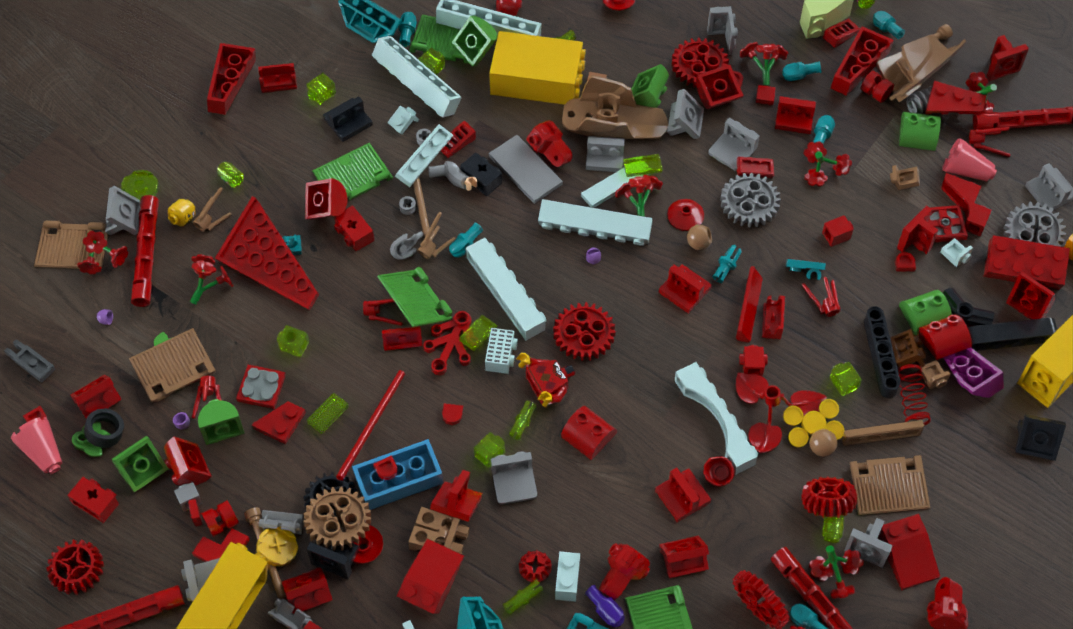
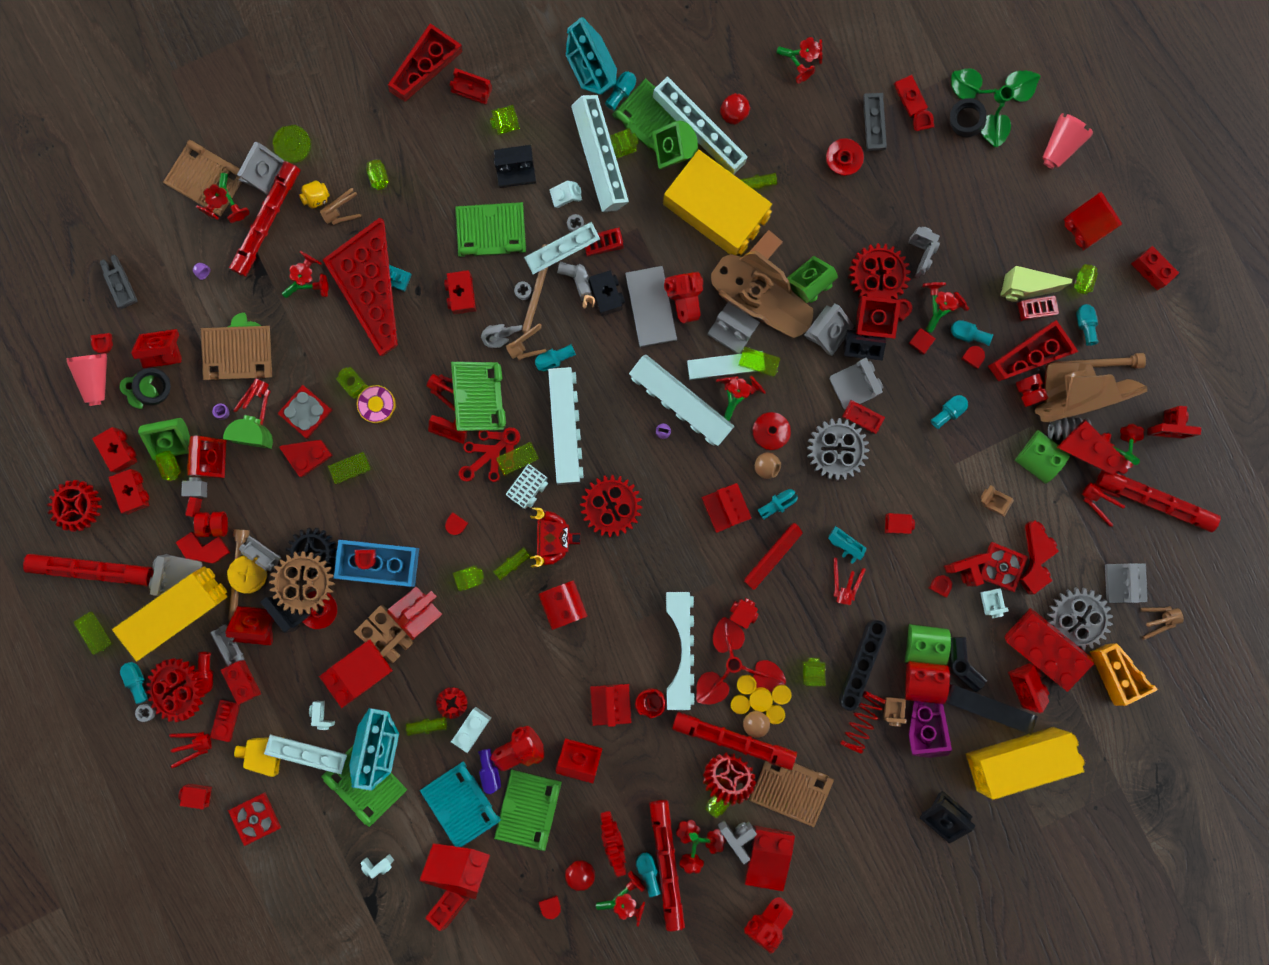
camera: 25 degrees right, 25 degrees up
(115, 525) = (122, 485): none -> red brick
(152, 487) = (167, 465): none -> clear neon green brick
(324, 199) = (445, 254): red brick -> none
(324, 350) = (376, 404): none -> tile
(370, 425) = (378, 502): red piece -> none
(513, 478) = (474, 617): light grey bracket -> none
(721, 113) = (864, 346): none -> black brick
(773, 318) = (786, 580): red hinge -> none
(795, 115) = (936, 377): red bracket -> none
(813, 464) = (773, 754): none -> red piece
(815, 86) = (974, 356): none -> red tile
(815, 153) = (916, 453): red plant -> none
(883, 432) = (820, 743): medium nougat tile -> none
(907, 348) = (885, 676): reddish brown bracket -> none
(968, 162) = (1064, 517): coral cone -> none

